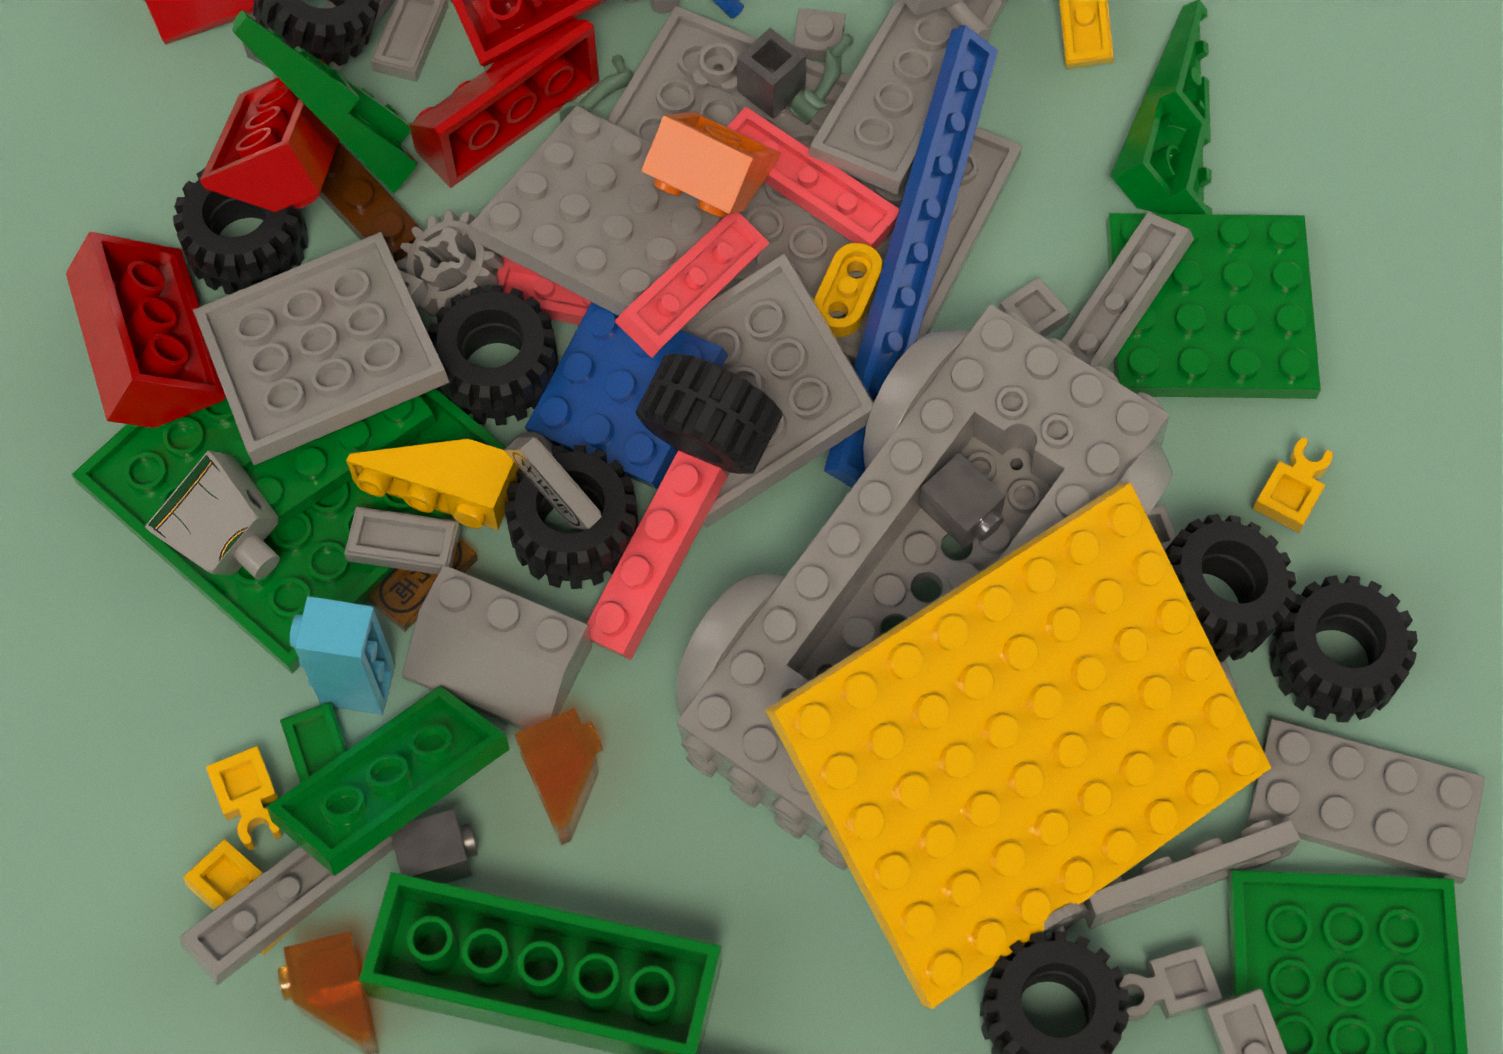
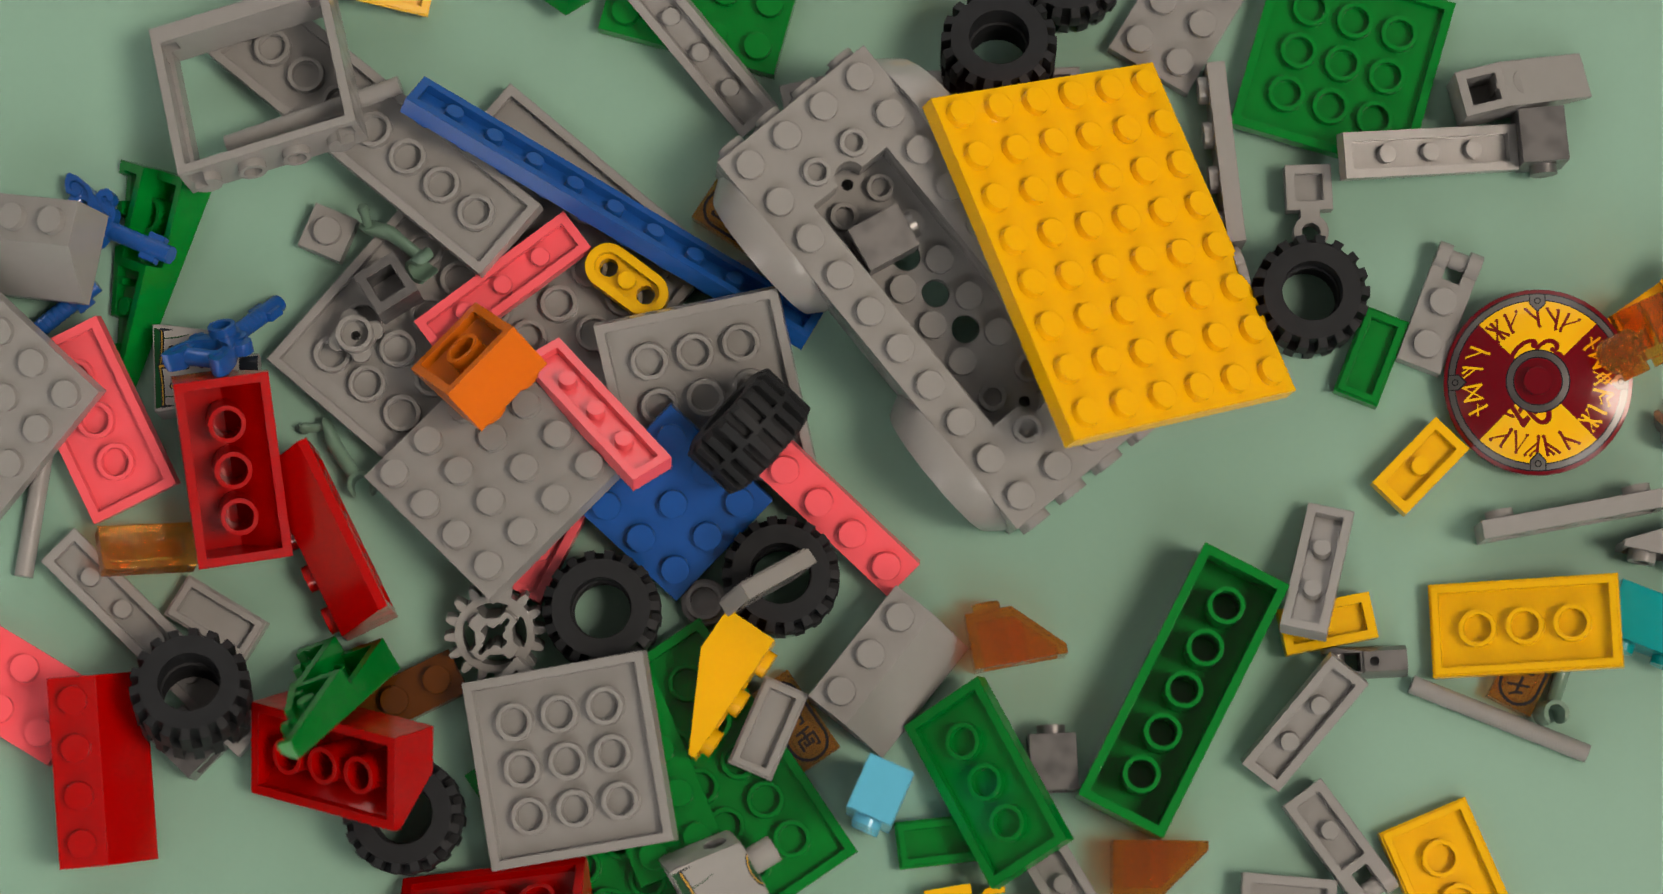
camera: 75 degrees left, 15 degrees up
(1038, 307) = (680, 124): light grey plate -> none

